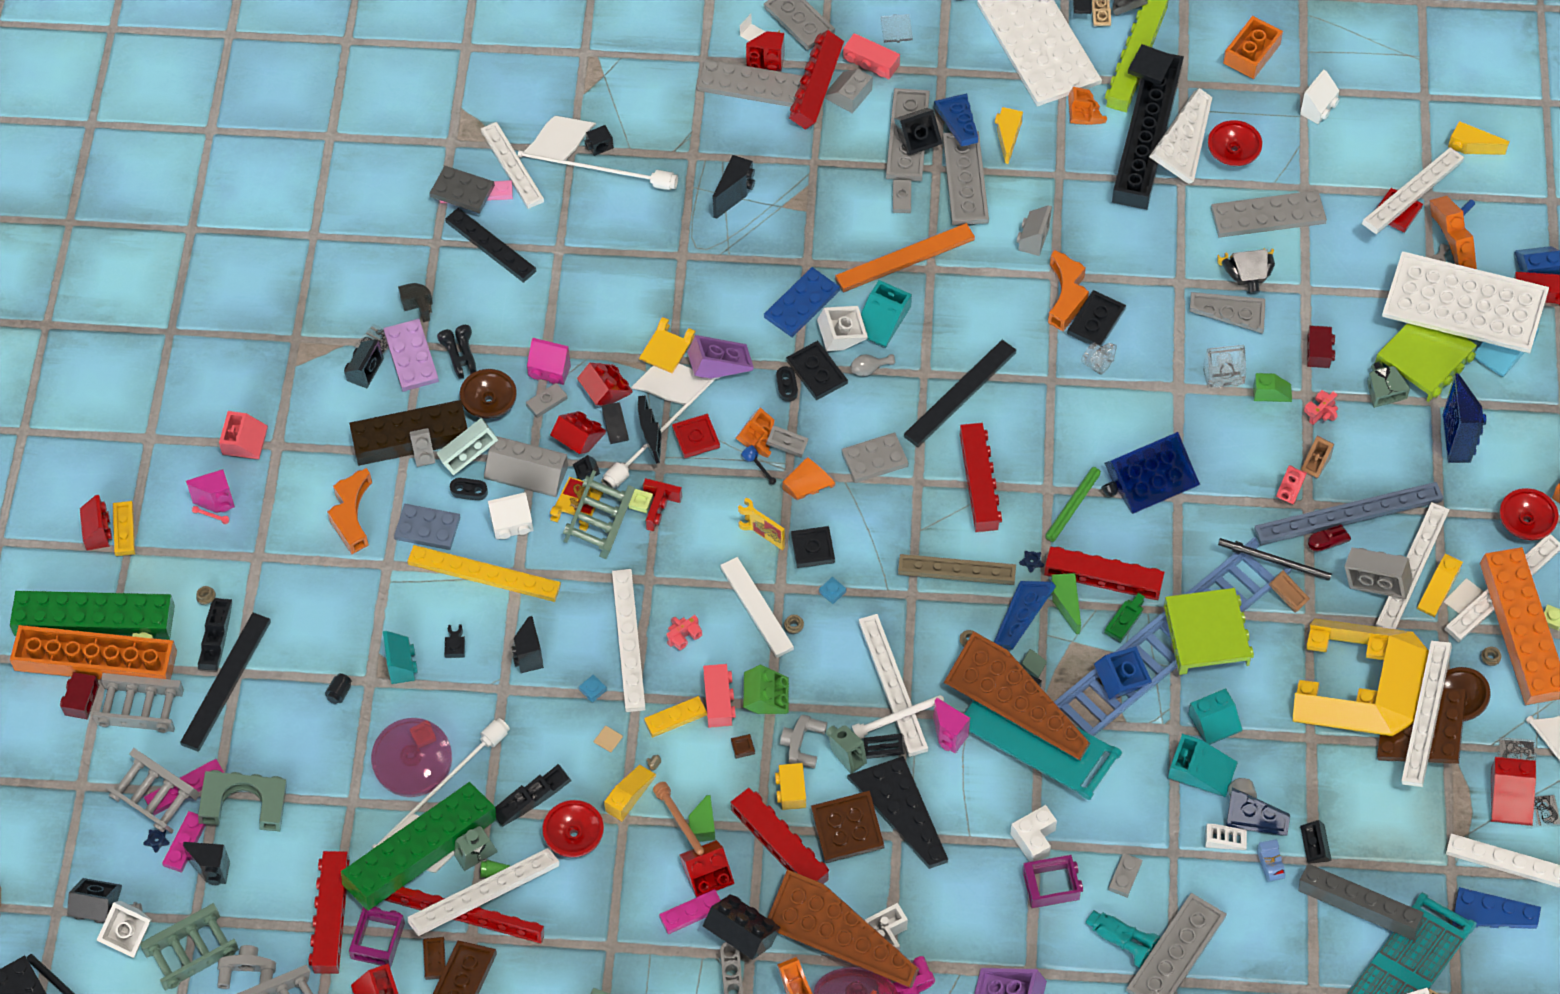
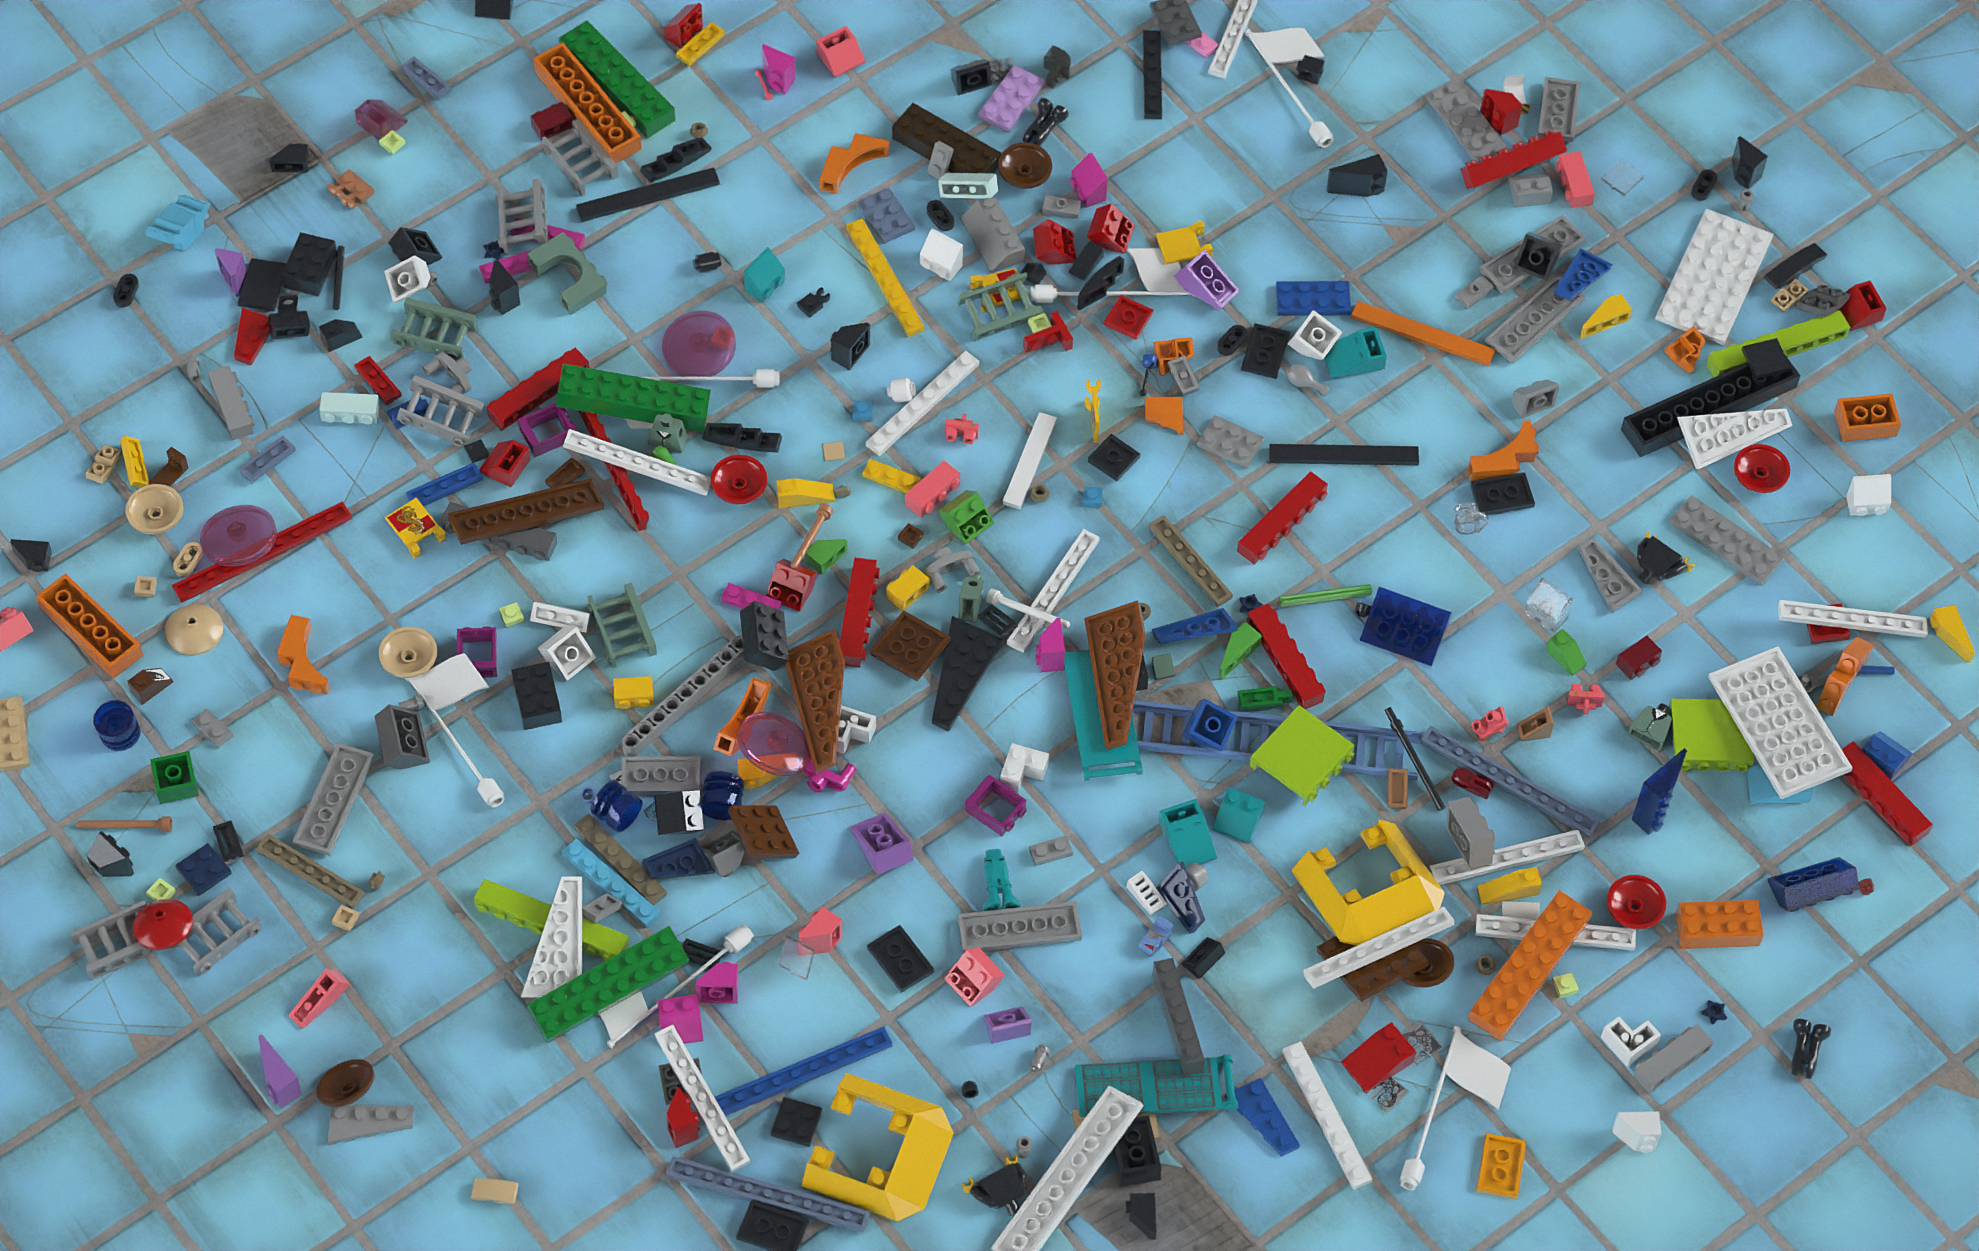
camera: 45 degrees right, 0 degrees up
(604, 644) = (901, 390): none -> white head

